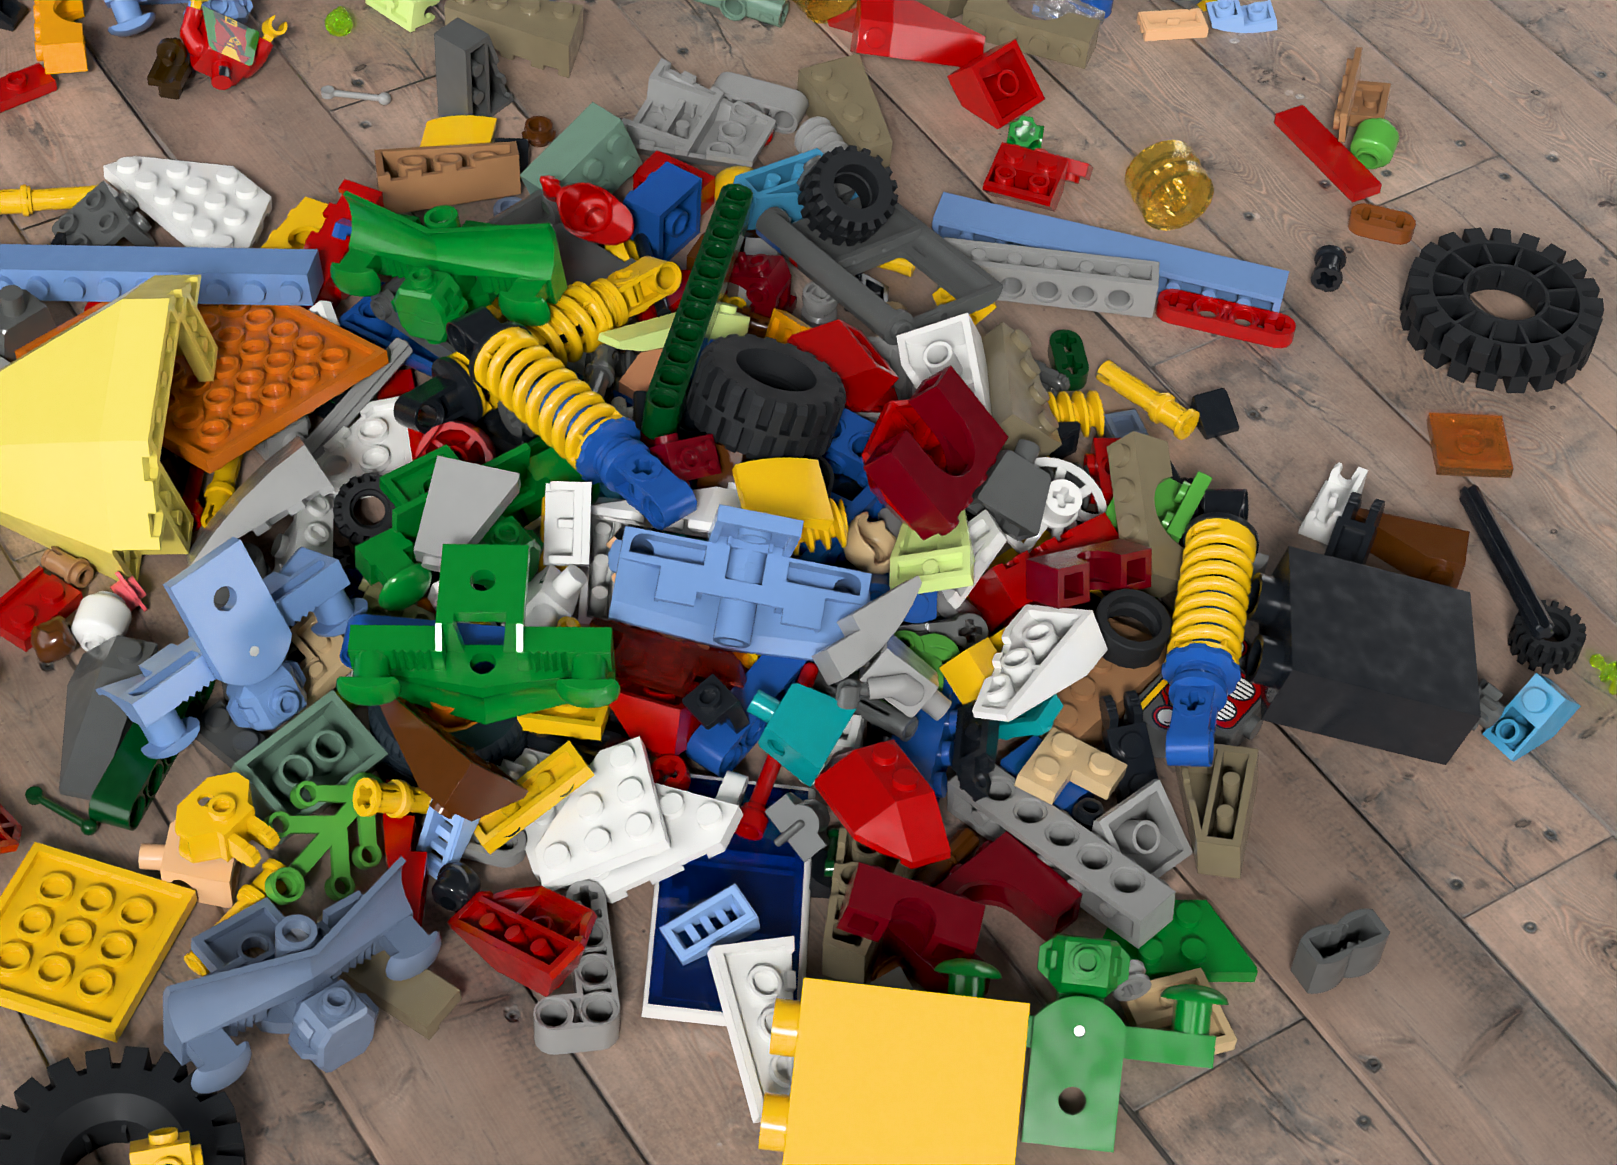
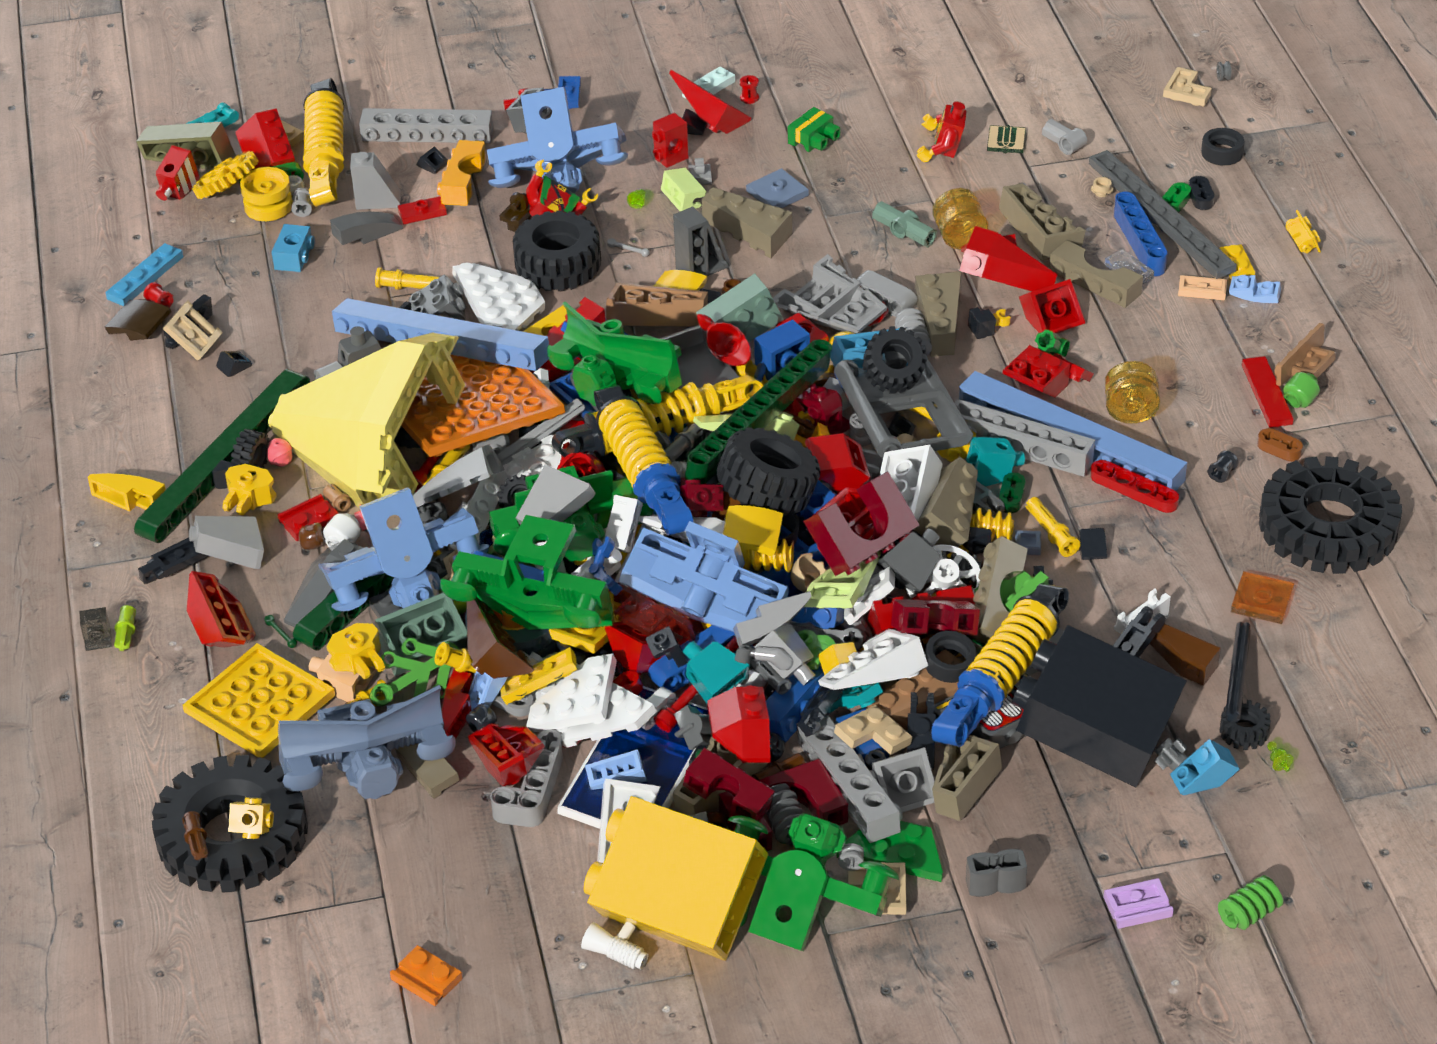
camera: 25 degrees right, 5 degrees down
(228, 112) = (557, 250): none -> black tyre
(559, 603) = (602, 551): none -> blue piece
(914, 121) = (983, 322): none -> black piece
(998, 937) = (783, 811): none -> dark grey piece
(1031, 310) = (993, 459): none -> teal torso
(1546, 946) = (1138, 903): none -> lavender plate

